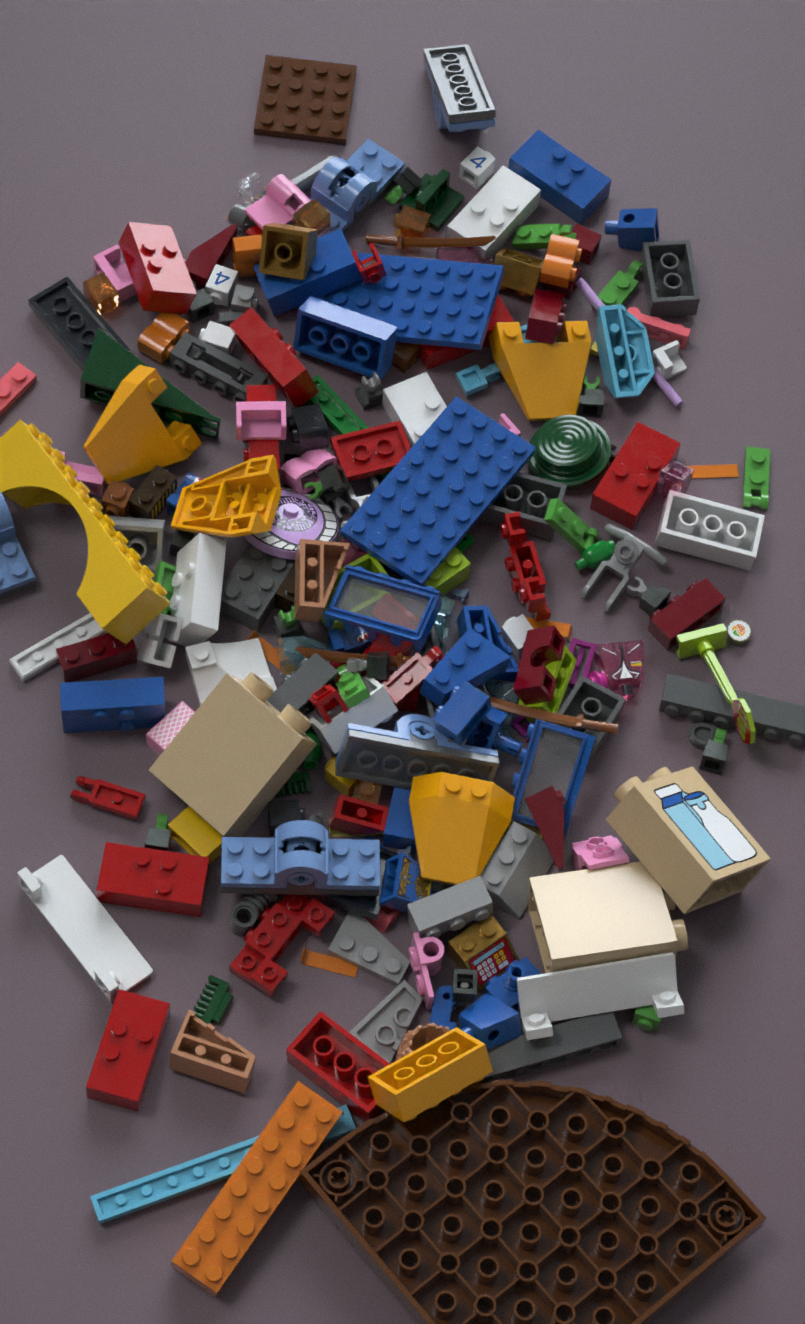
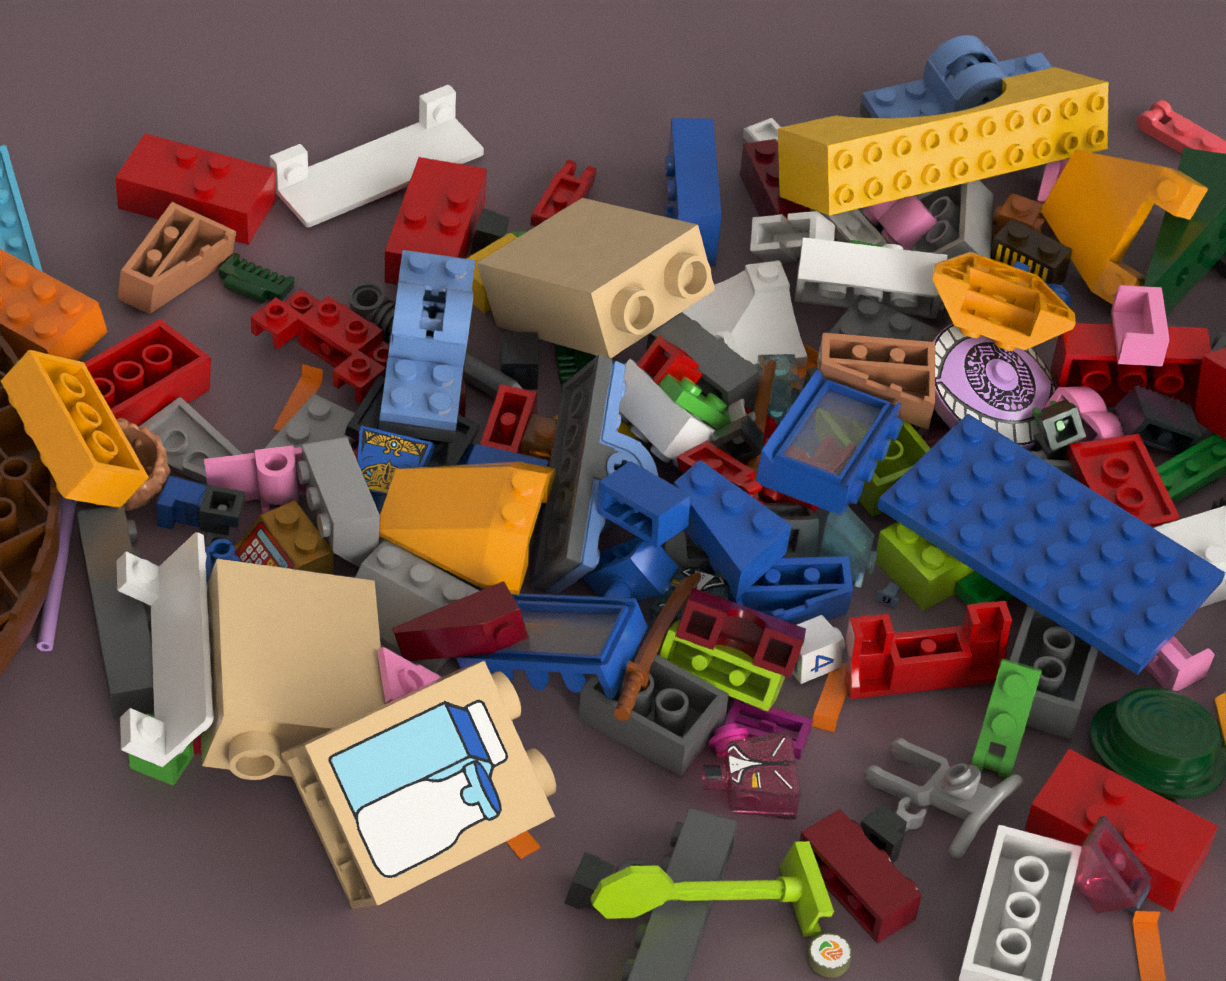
camera: 95 degrees right, 15 degrees down
(490, 1021) = (155, 527): blue torso -> none
(595, 554) = (963, 752): green plant -> none

